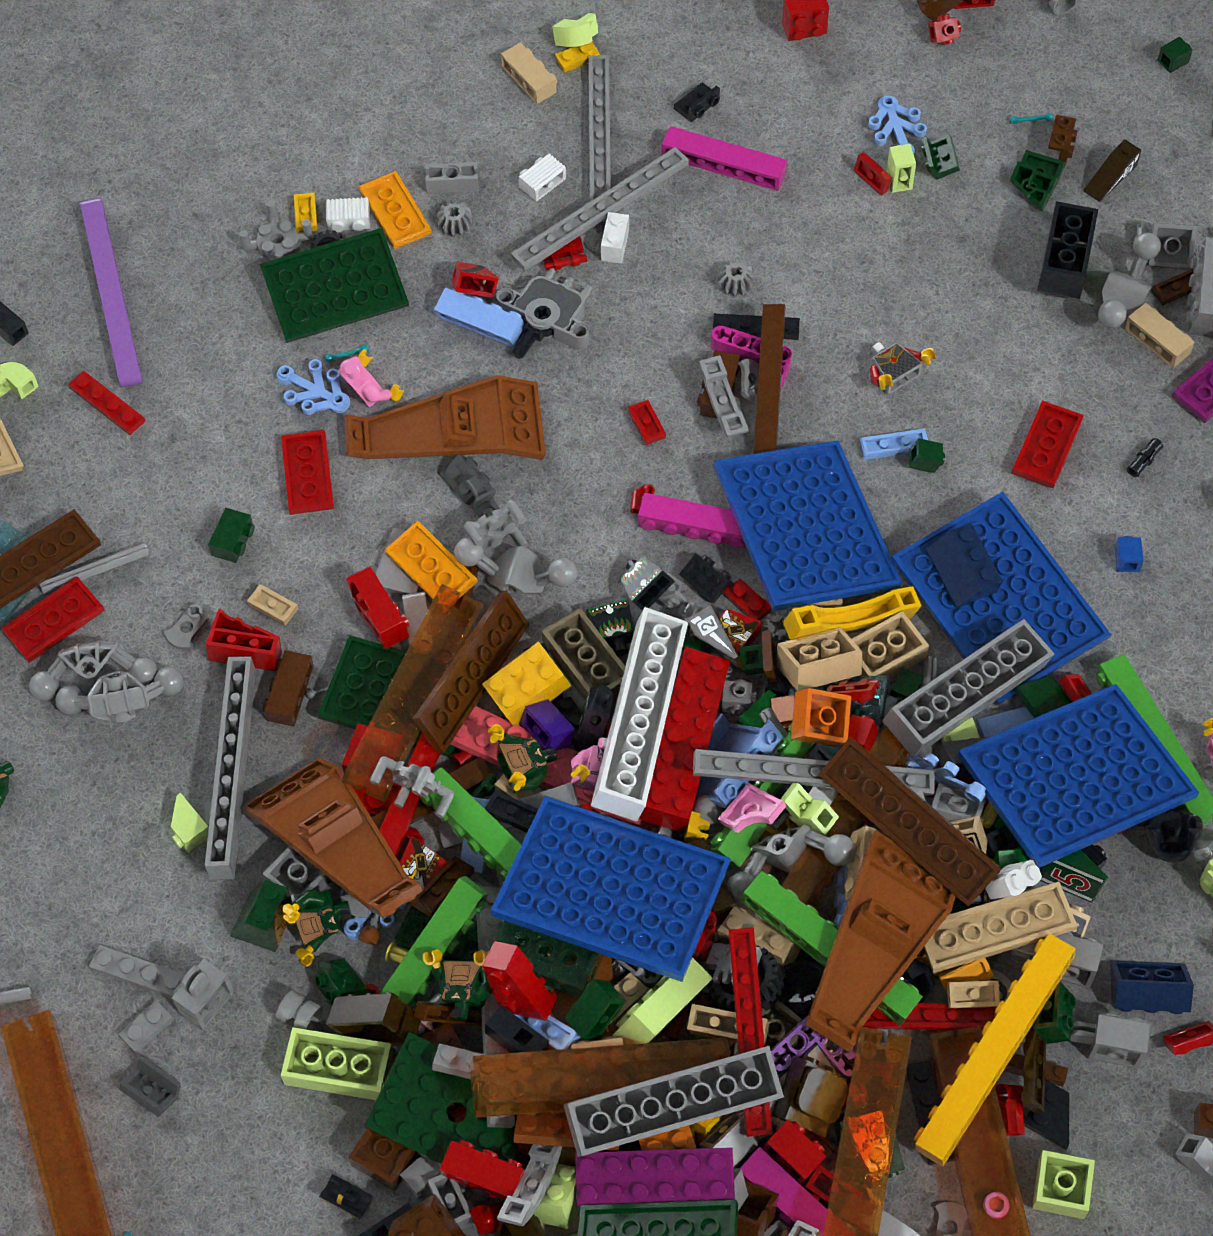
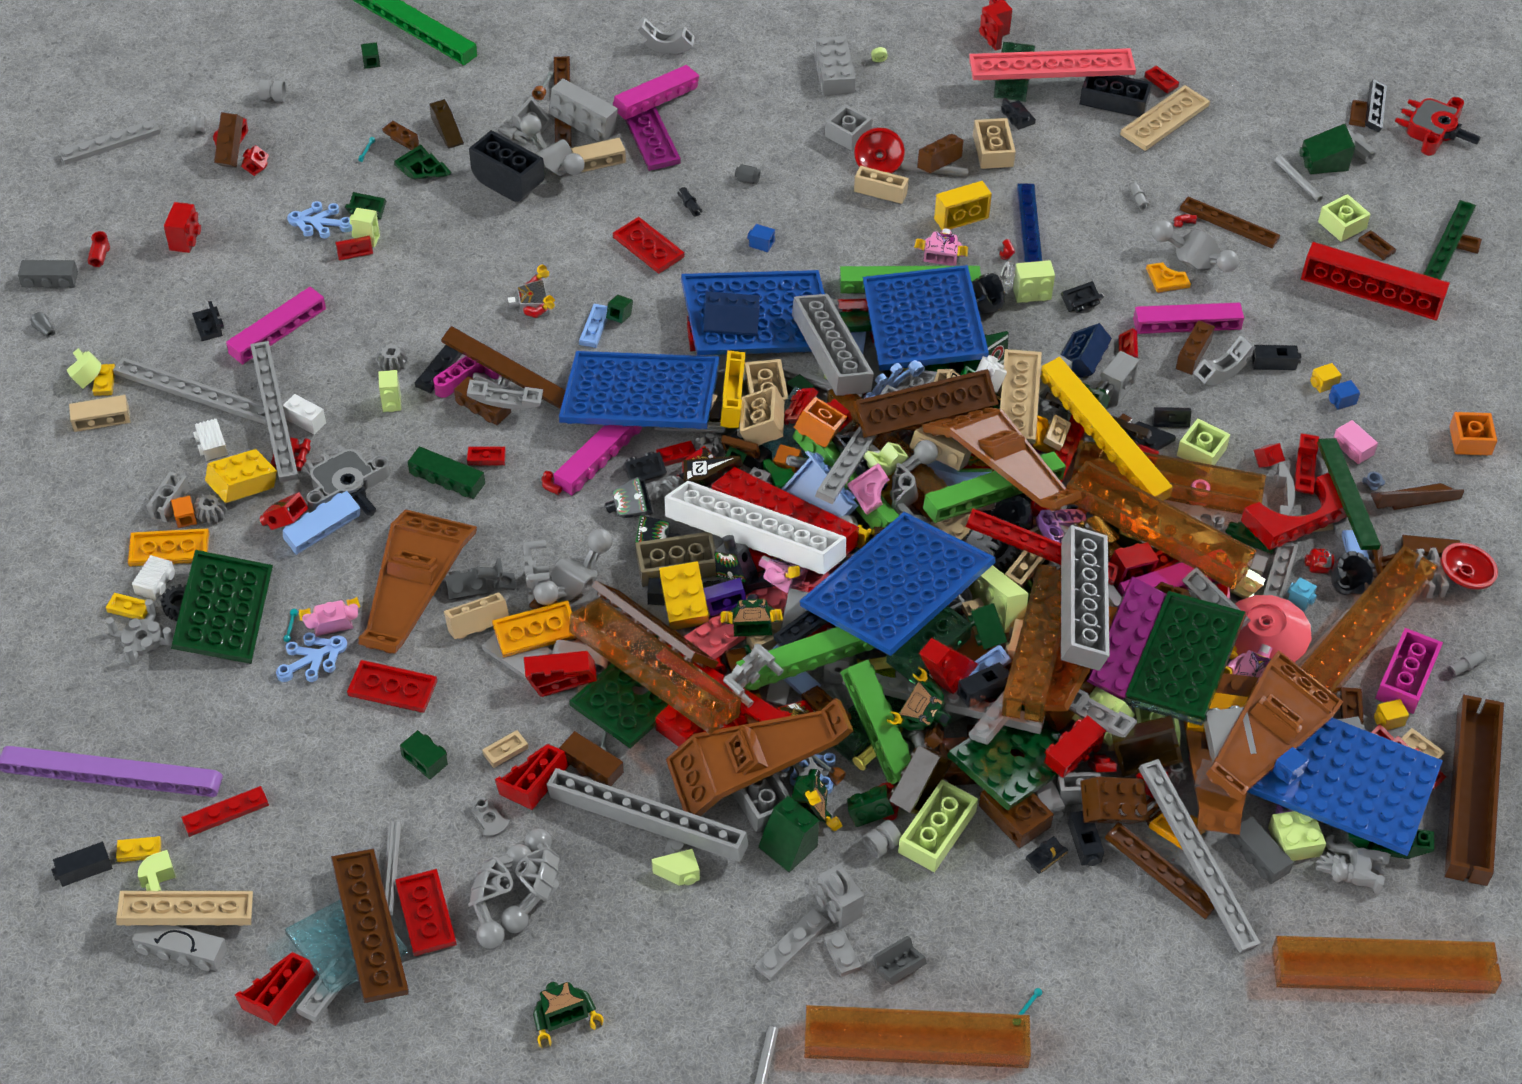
camera: 70 degrees left, 10 degrees down
(38, 355) = (137, 848): none -> yellow plate
(422, 504) = (475, 615): none -> tan brick
(438, 196) = (183, 511): none -> orange brick
(500, 220) = (240, 475): none -> yellow brick
(603, 396) = (446, 472): none -> dark green brick
(679, 295) = (389, 391): none -> yellowish green brick
(1093, 1125) = (1171, 417): none -> black tile

